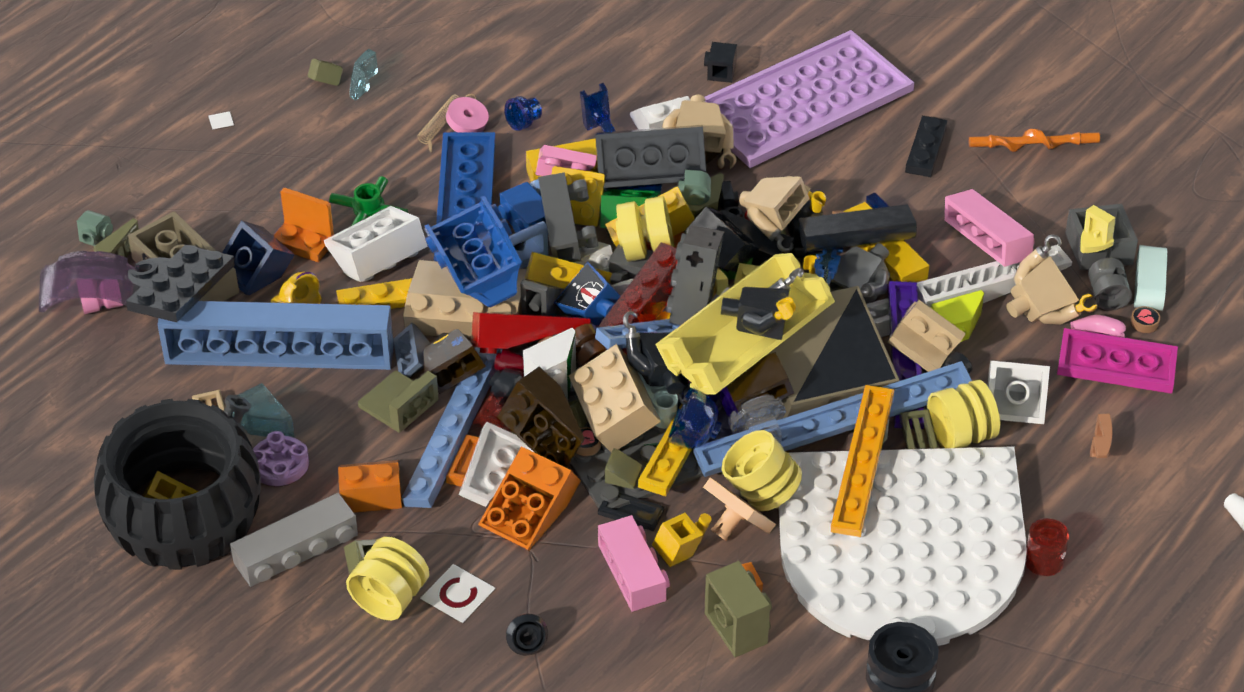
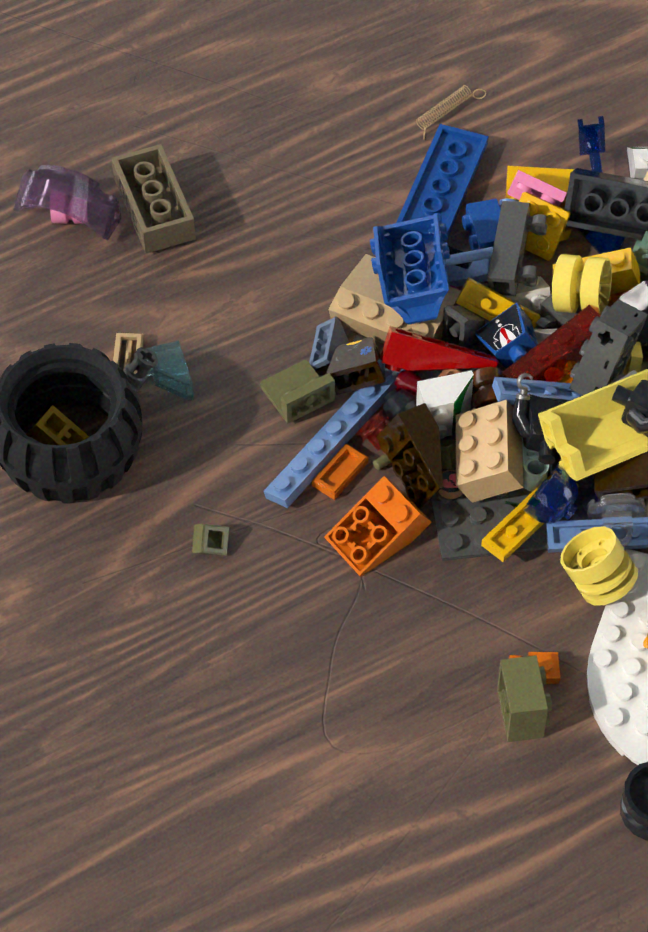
camera: 20 degrees right, 10 degrees up
(93, 227) = (89, 138): sand green plate -> none
(118, 241) = (99, 164): olive slope -> none
(174, 285) = (133, 220): black plate -> none
(221, 120) = (243, 55): white sticker -> none
(257, 257) = (220, 208): dark blue slope -> none
(280, 335) = (210, 295): medium blue brick -> none
(281, 459) = (170, 419): lavender tile -> none
(294, 539) = (154, 504): light grey brick -> none
(300, 288) = (242, 262): yellow hair -> none
(305, 224) = (278, 190): orange bracket -> none
(325, 72) = (355, 29): olive slope -> none
(363, 70) = (390, 37): clear light blue slope -> none
(366, 199) = (342, 181): green bar -> none
(371, 486) = (240, 469): orange slope -> none
(377, 243) = (334, 224): white slope -> none
(387, 293) = (312, 277): yellow plate -> none
(387, 578) = (218, 570): light yellow wheel -> none
(457, 593) = (281, 599): white sticker -> none
(463, 107) = (469, 101): bright pink piece -> none
(490, 463) = (355, 480): white wing -> none
(522, 112) = (522, 121): clear blue piece -> none
(526, 634) = (323, 662): black cone -> none
(612, 197) = (583, 243): green slope -> none
(622, 470) = (472, 523): olive slope -> none
(633, 563) = (448, 620): bright pink brick -> none
(644, 512) = (473, 569): black tile -> none
(680, 537) = (499, 609): yellow brick -> none
(736, 510) = (563, 597): light nougat tile -> none

